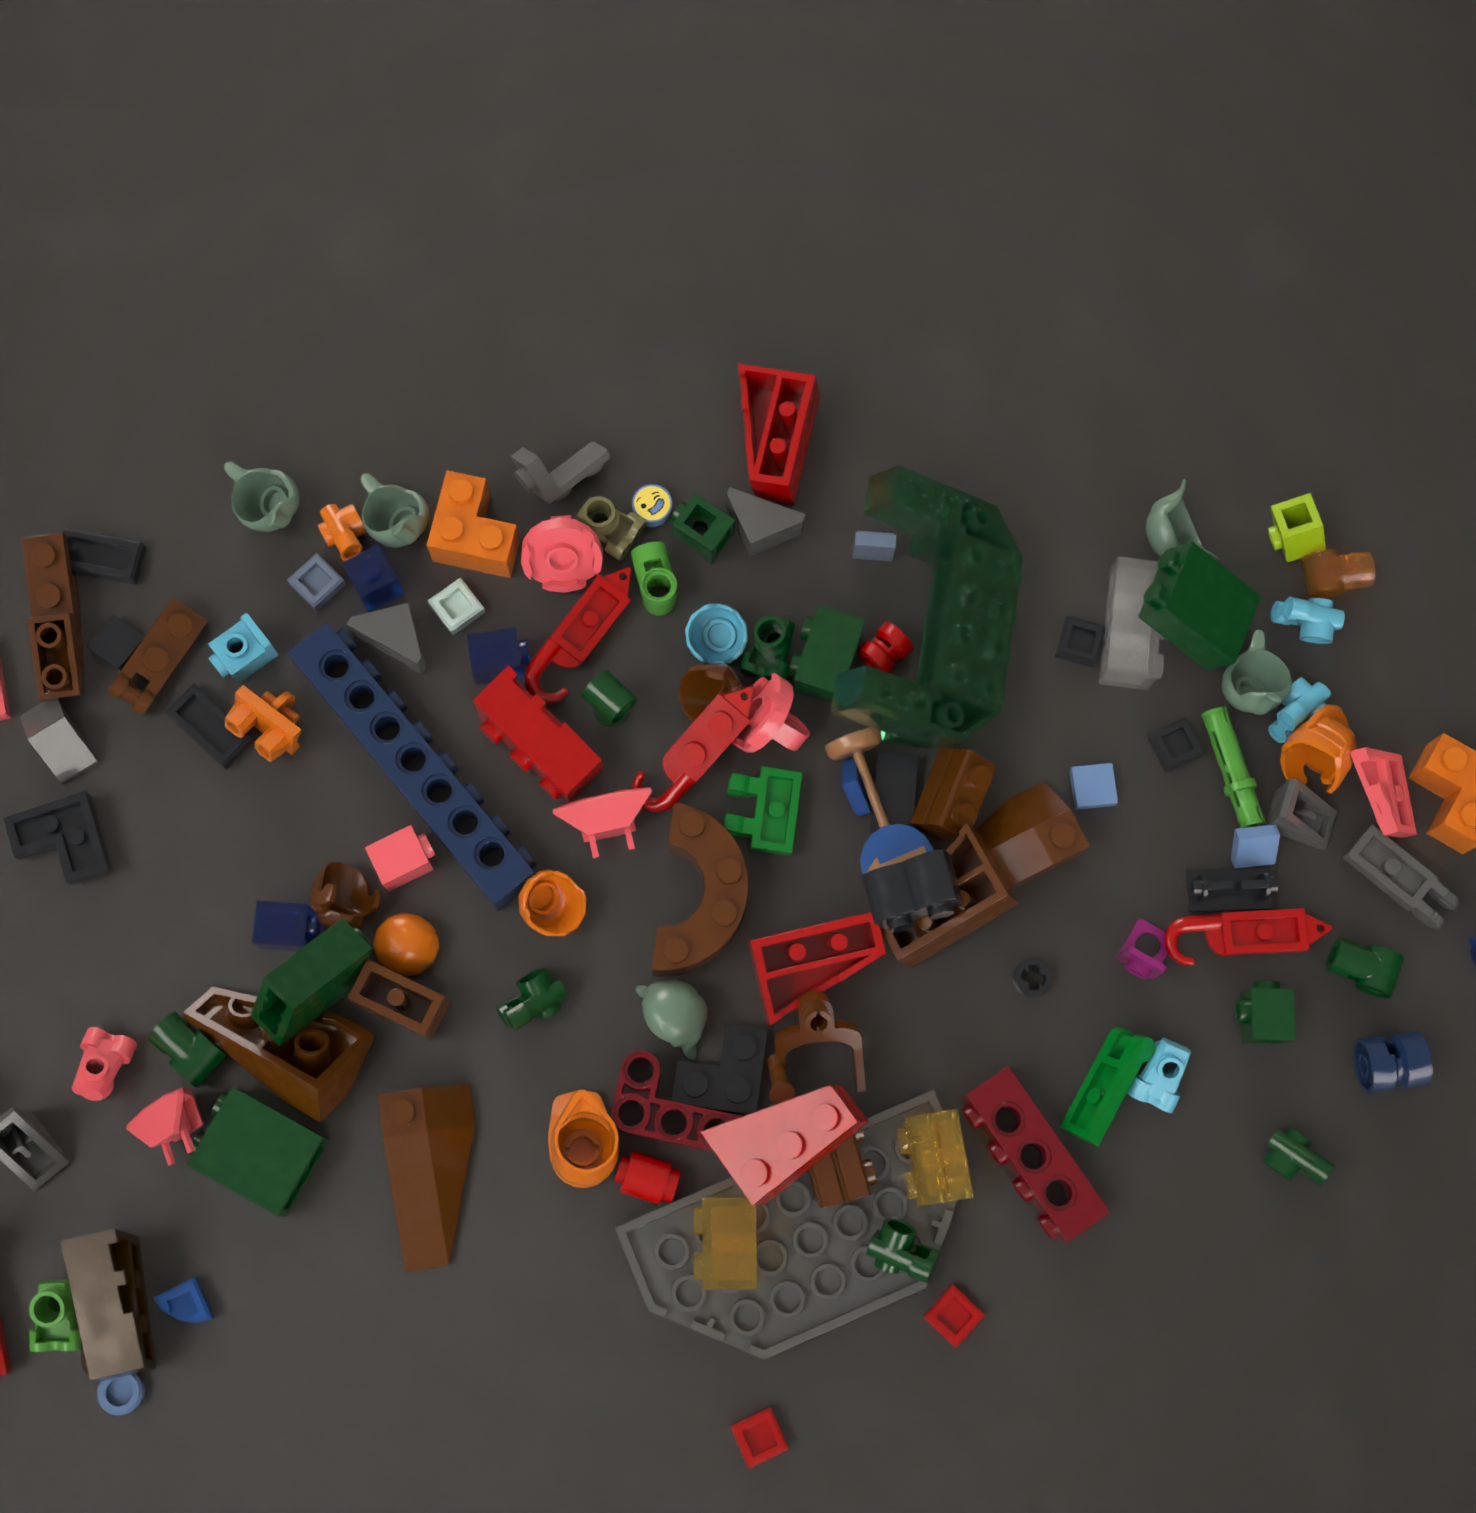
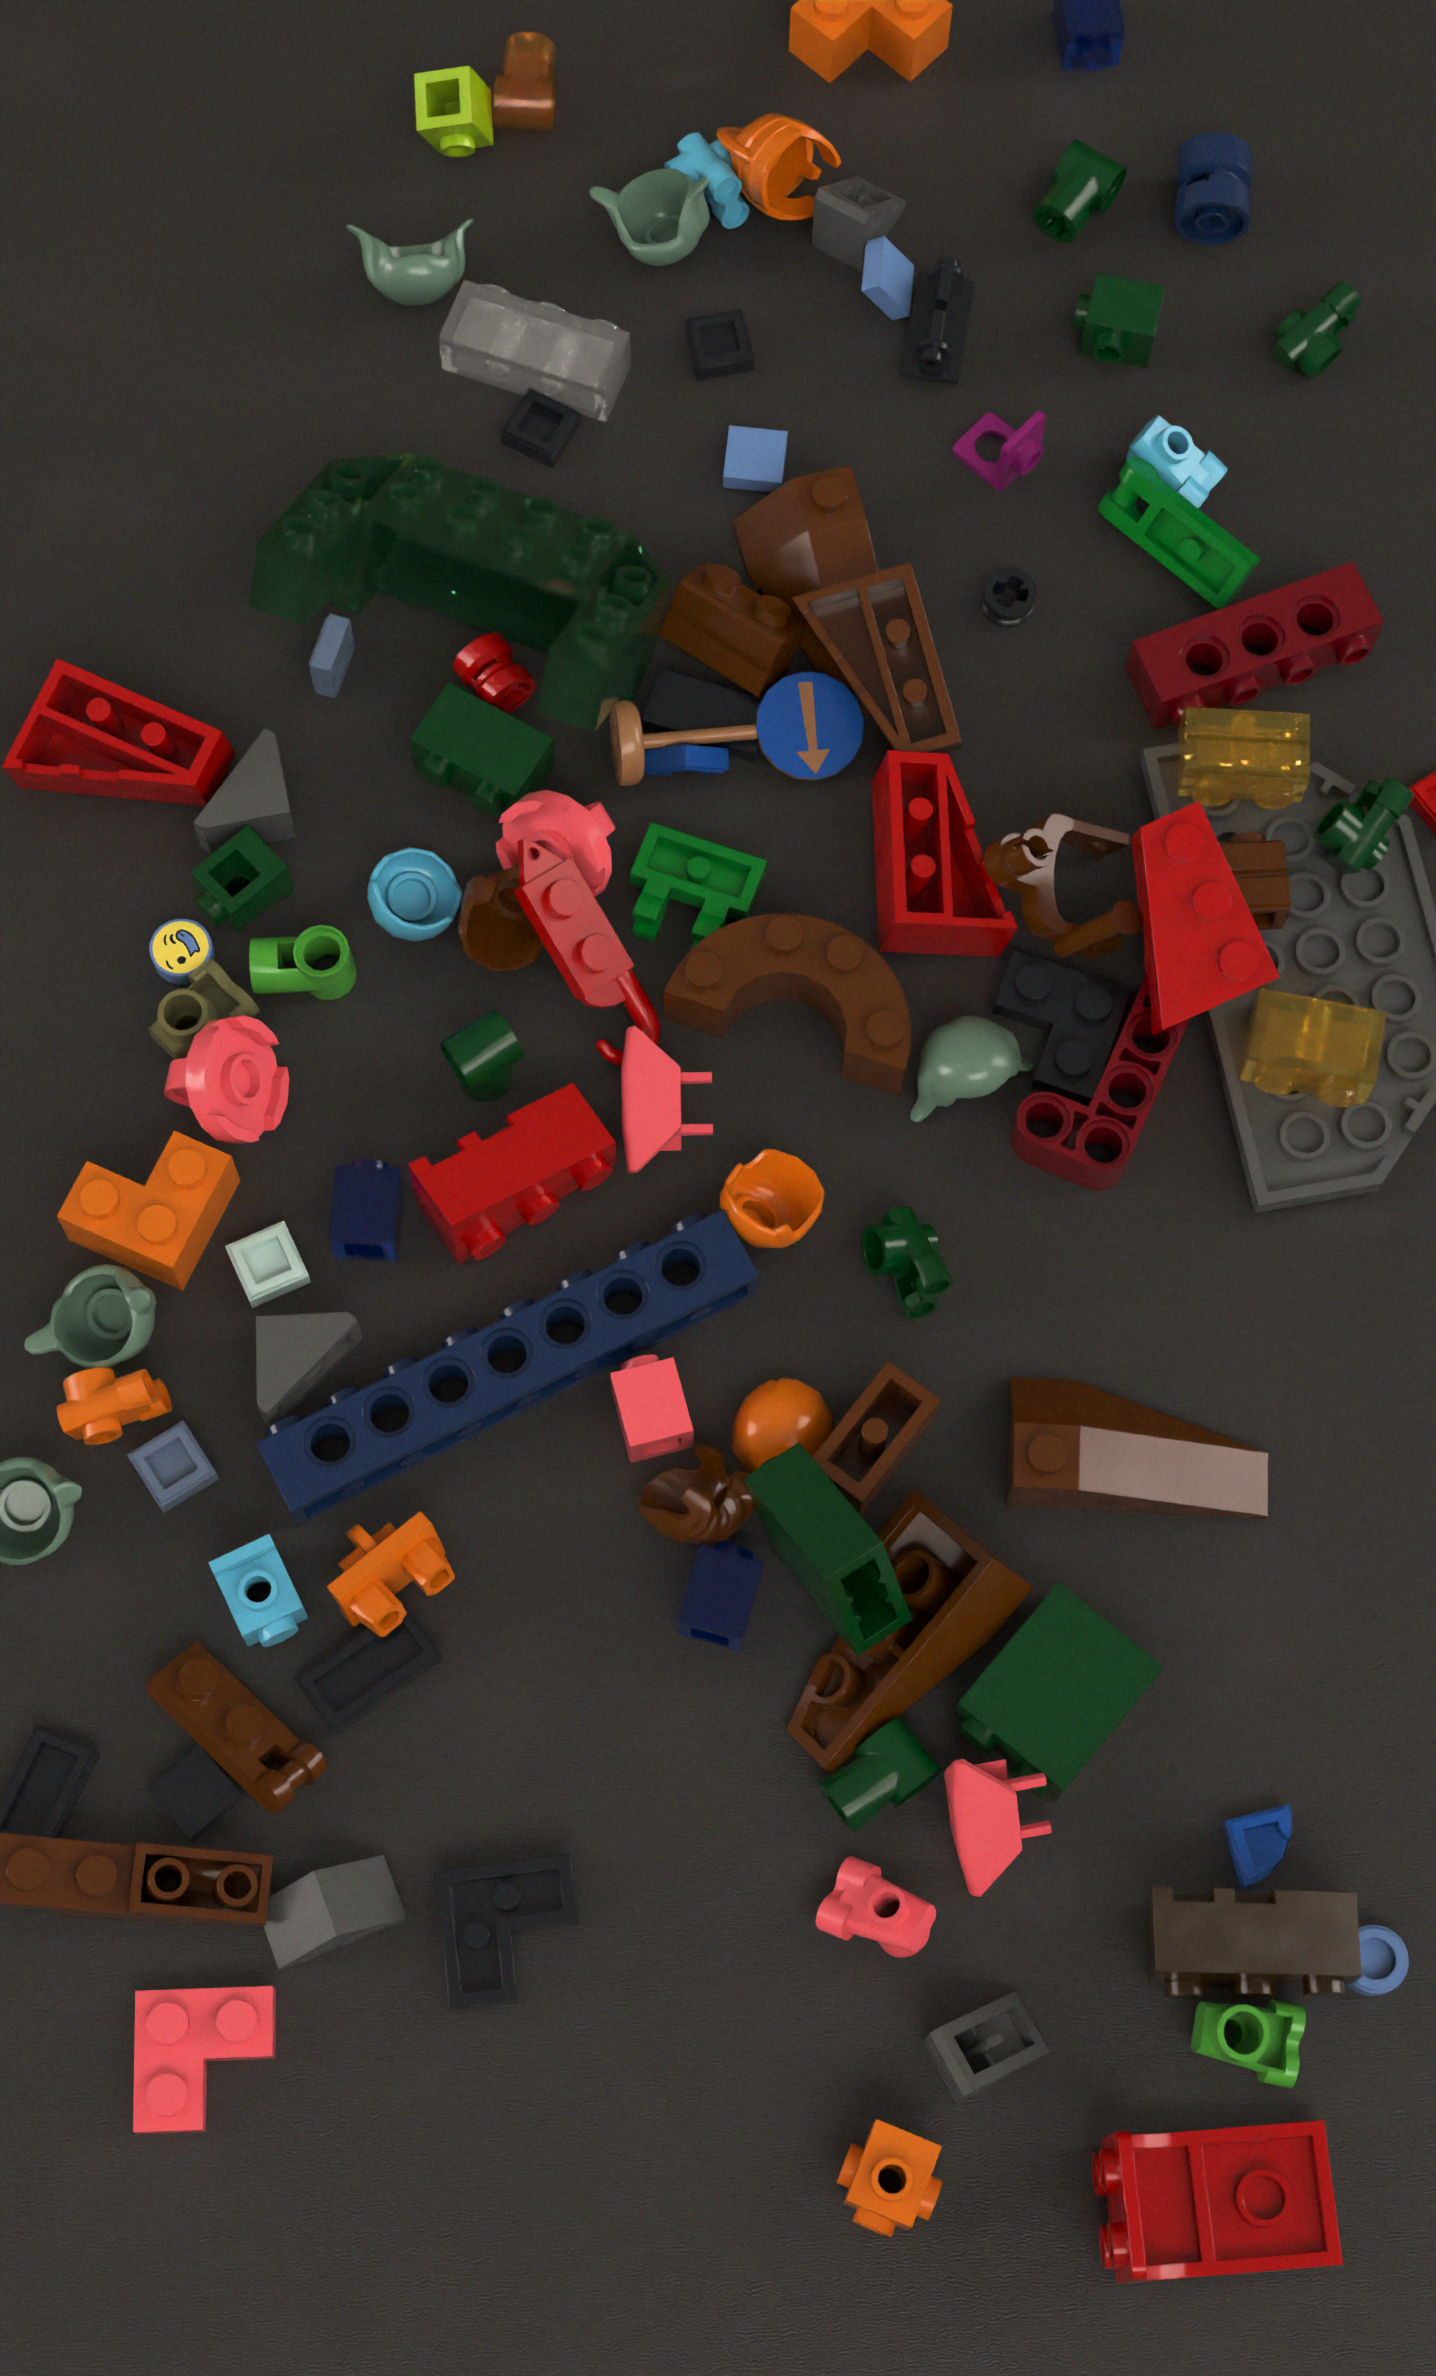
camera: 75 degrees left, 5 degrees down
(373, 578) = (195, 1370): clear blue brick -> none
(559, 482) = (105, 1069): dark grey bracket -> none
(580, 630) = (351, 1080): red plate -> none
(582, 1139) = (1126, 1225): orange helmet -> none
(647, 1177) = (1194, 1150): red brick -> none
(767, 656) = (468, 836): dark green plate -> none
(913, 890) = (874, 685): black brick -> none
(1199, 606) = (539, 251): dark green brick -> none
(1238, 783) = (772, 279): bright green pin -> none
(1248, 932) = (1003, 318): red plate -> none
(1314, 615) = (580, 129): medium azure plate -> none
(1386, 789) = (837, 101): coral wing -> none
(1400, 876) = (964, 121): dark grey hinge -> none

